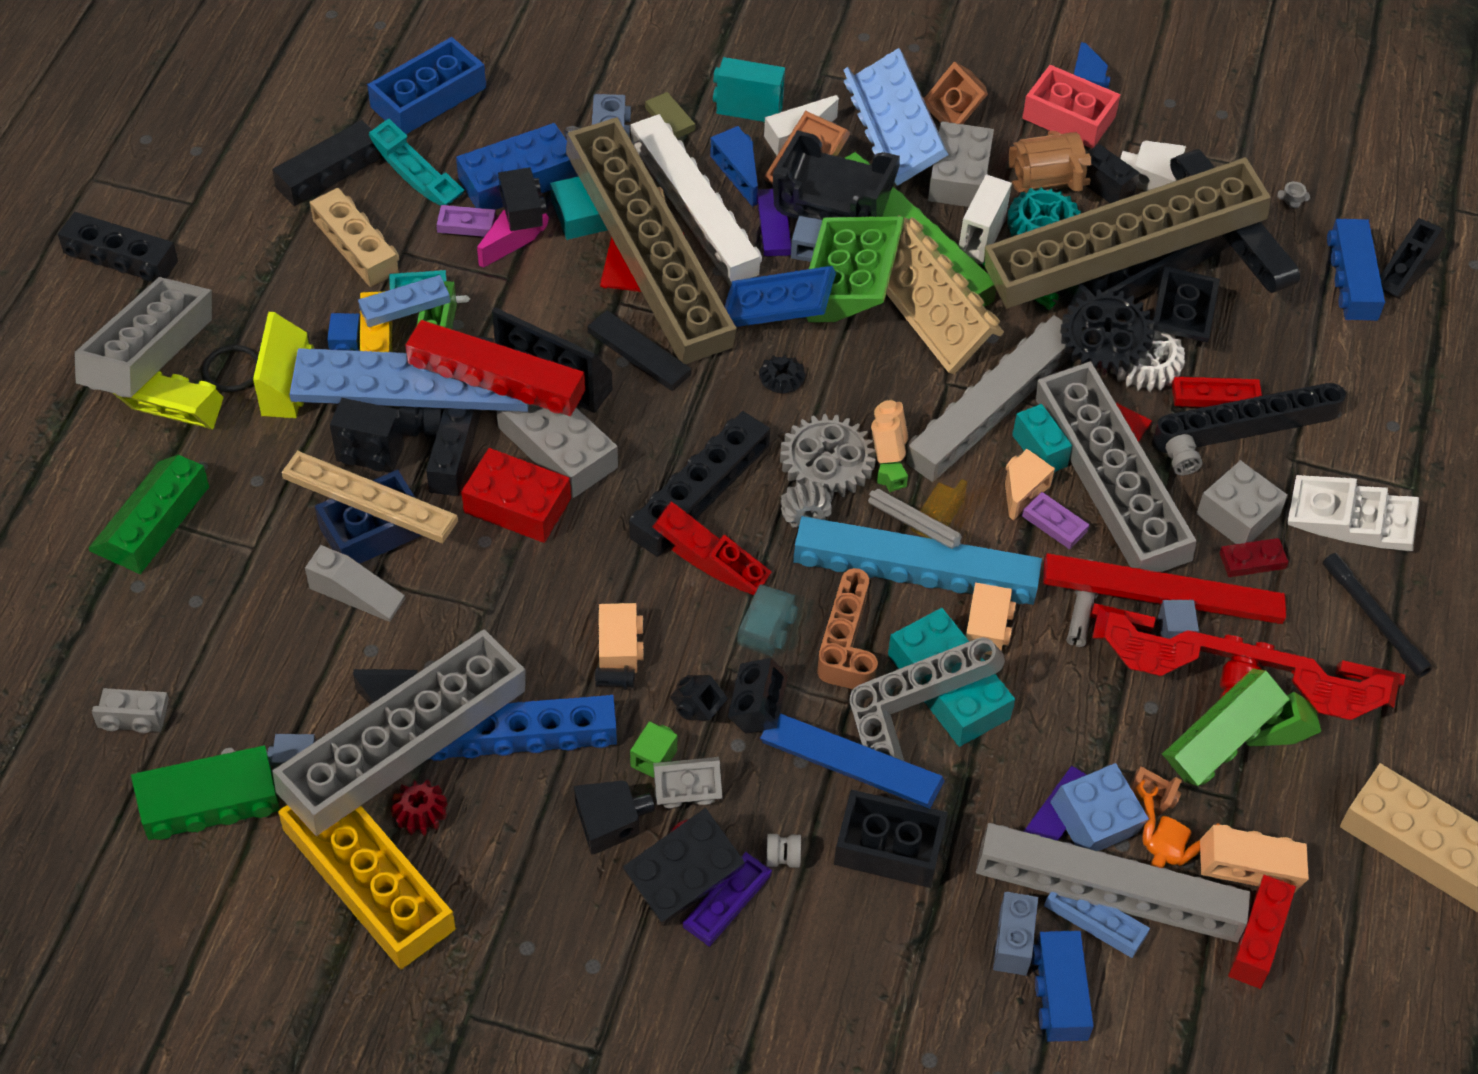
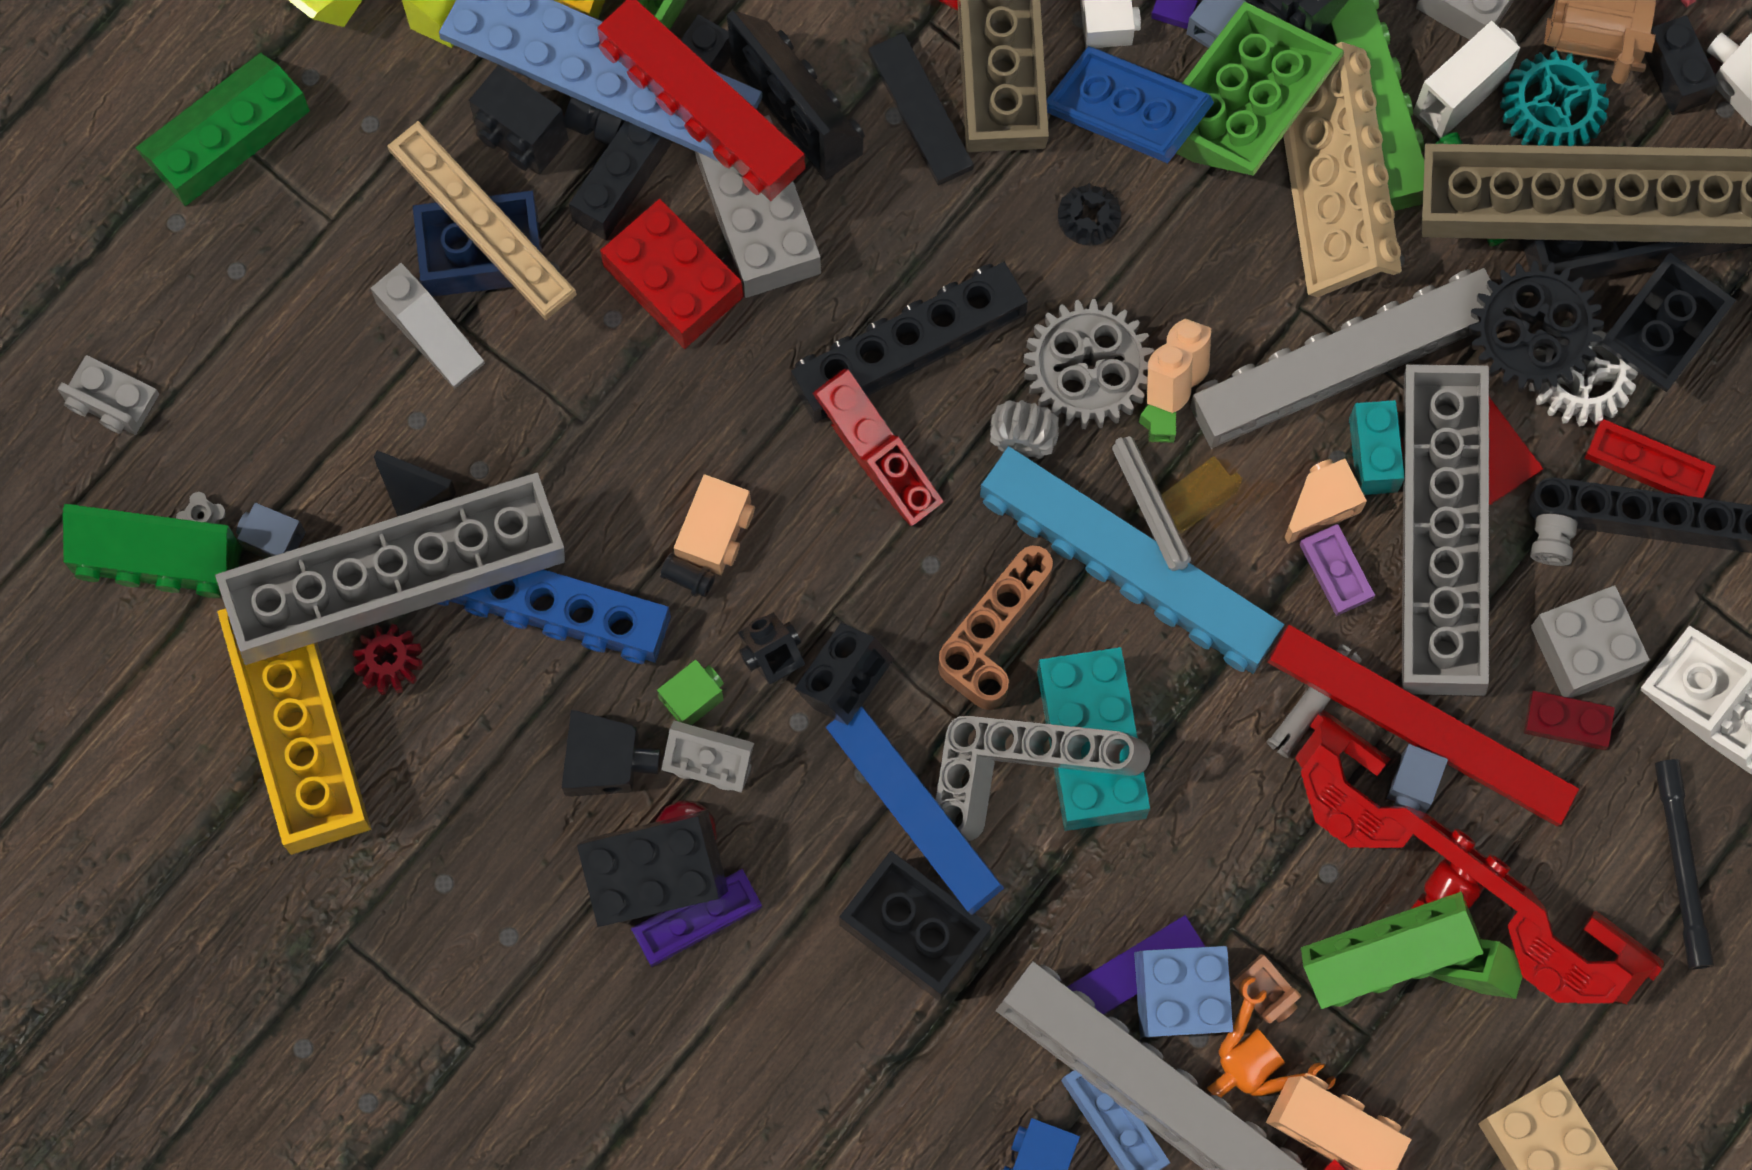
camera: 25 degrees right, 20 degrees up
(766, 620) = (905, 571): clear light blue brick -> none
(775, 850) = (776, 883): light grey wheel -> none
(990, 613) = (1179, 678): light nougat brick -> none
(1015, 933) = (1006, 1103): sand blue brick -> none

